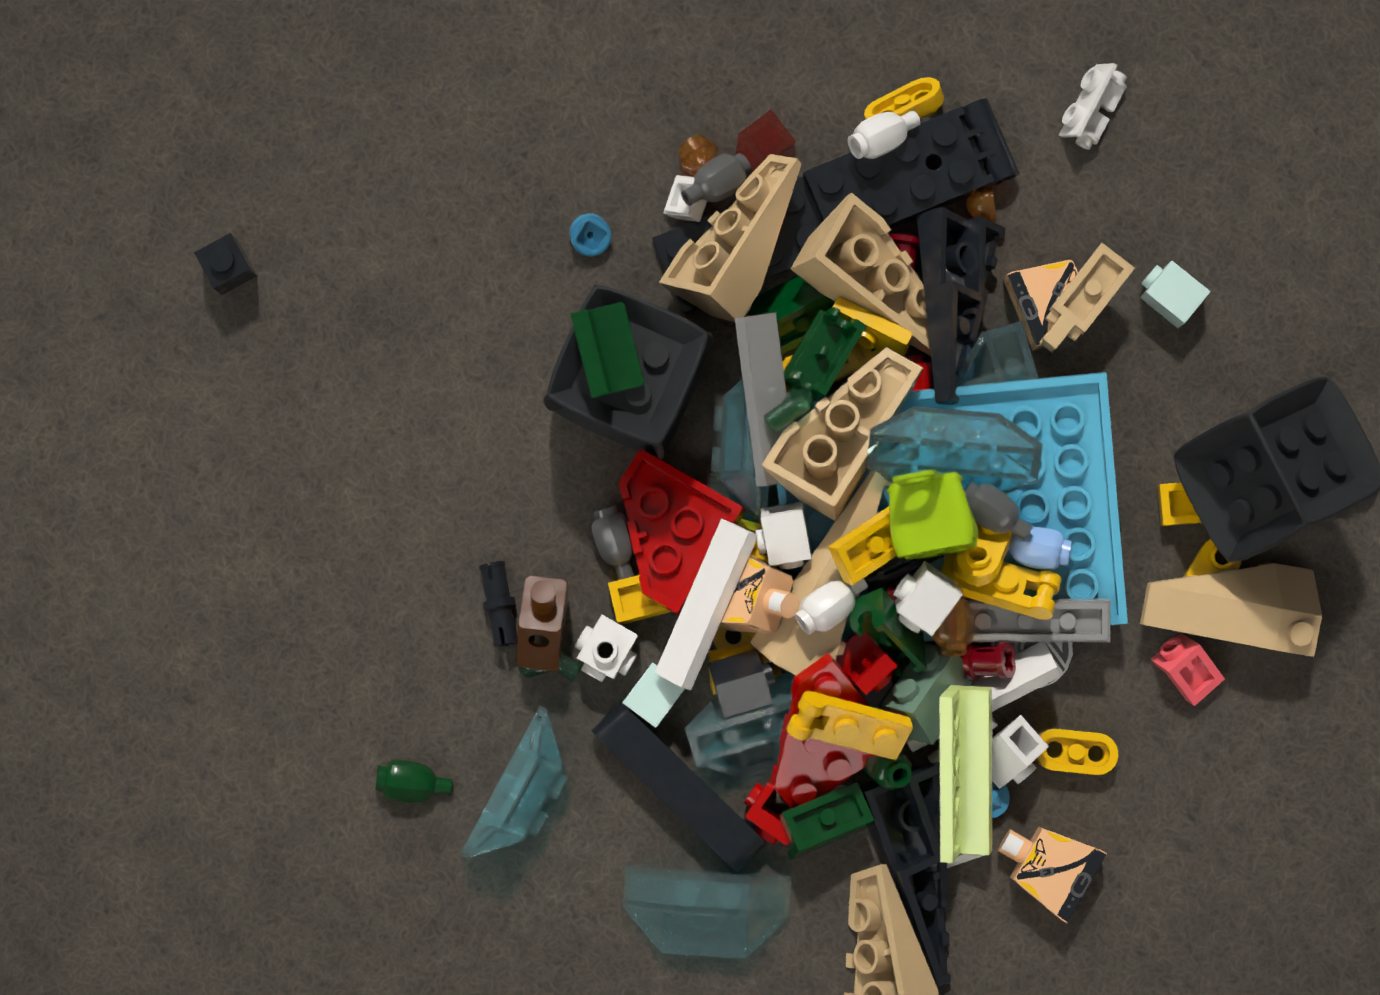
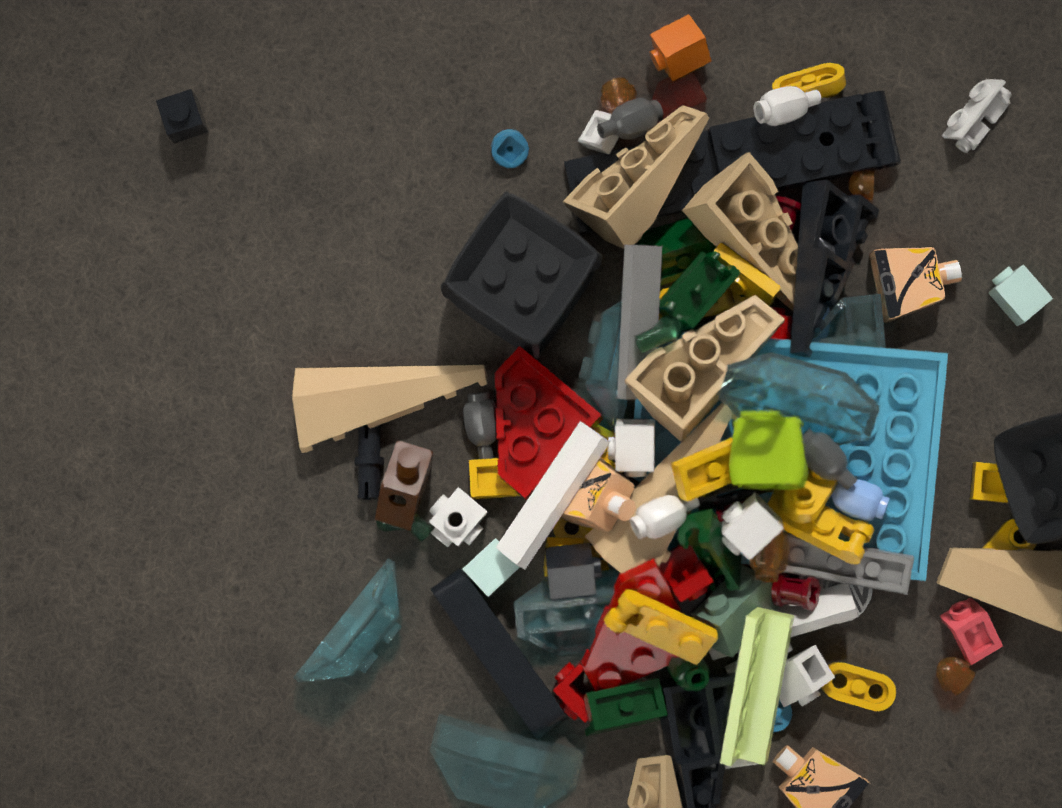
camera: 10 degrees right, 0 degrees up
(410, 781) = (261, 604): dark green plant -> none
(460, 540) = (346, 398): none -> tan wedge
(607, 349) = (506, 251): dark green panel -> none
(755, 91) = (679, 48): none -> orange brick
(1086, 296) = (941, 282): tan hinge -> none
(1177, 719) = (954, 674): none -> clear orange plate

